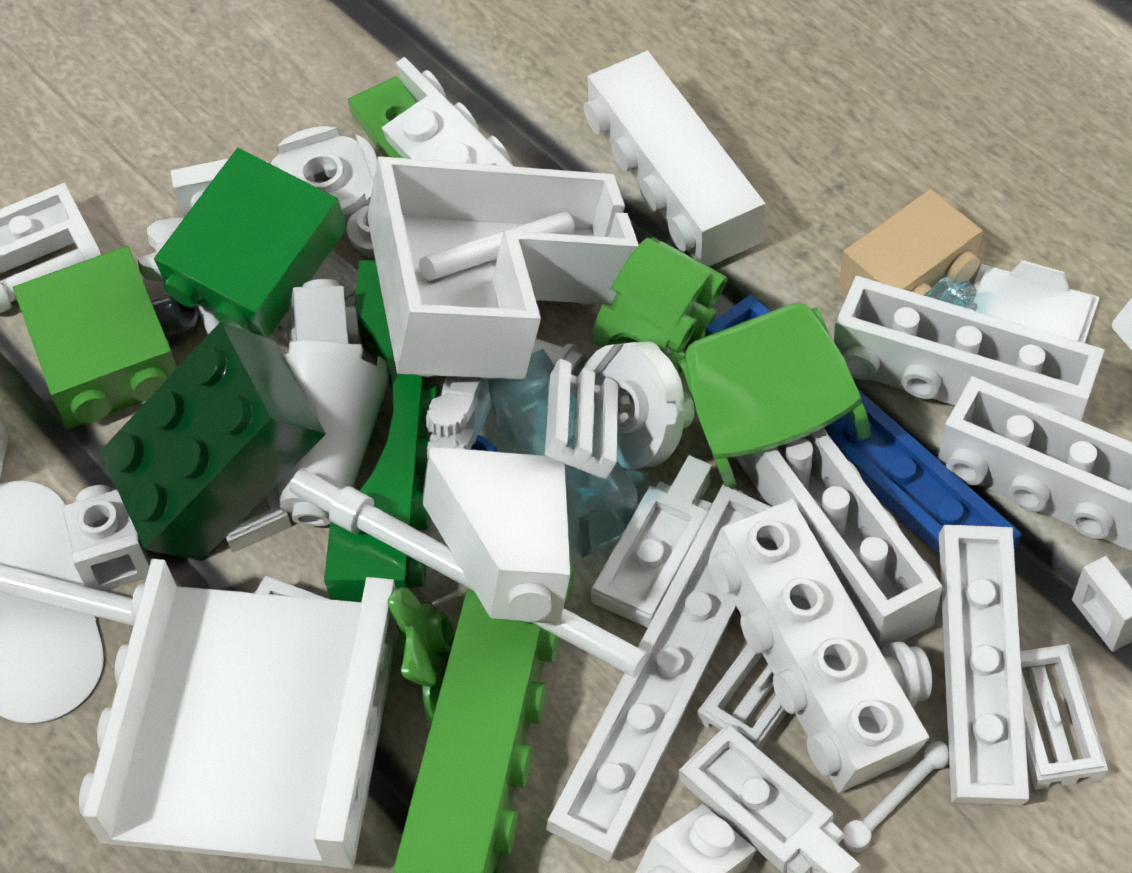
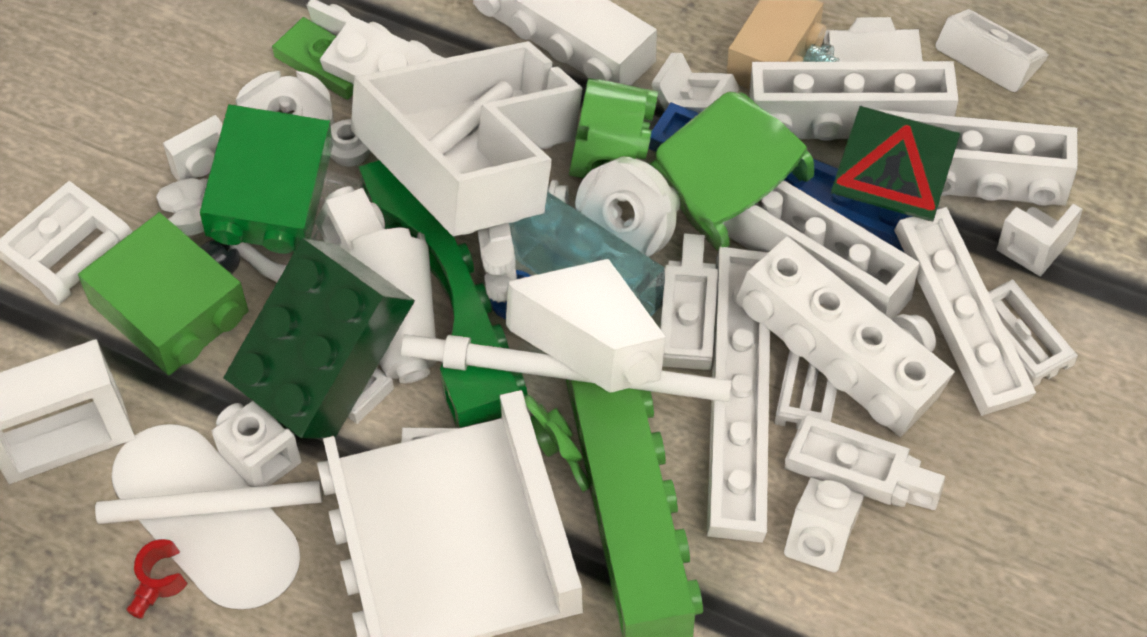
camera: 25 degrees left, 0 degrees up
(605, 420) = (604, 226): white tile -> none
(776, 282) = (688, 89): none -> white bracket
(858, 833) = (956, 387): white hinge -> none
(969, 453) = (896, 163): none -> dark green piece

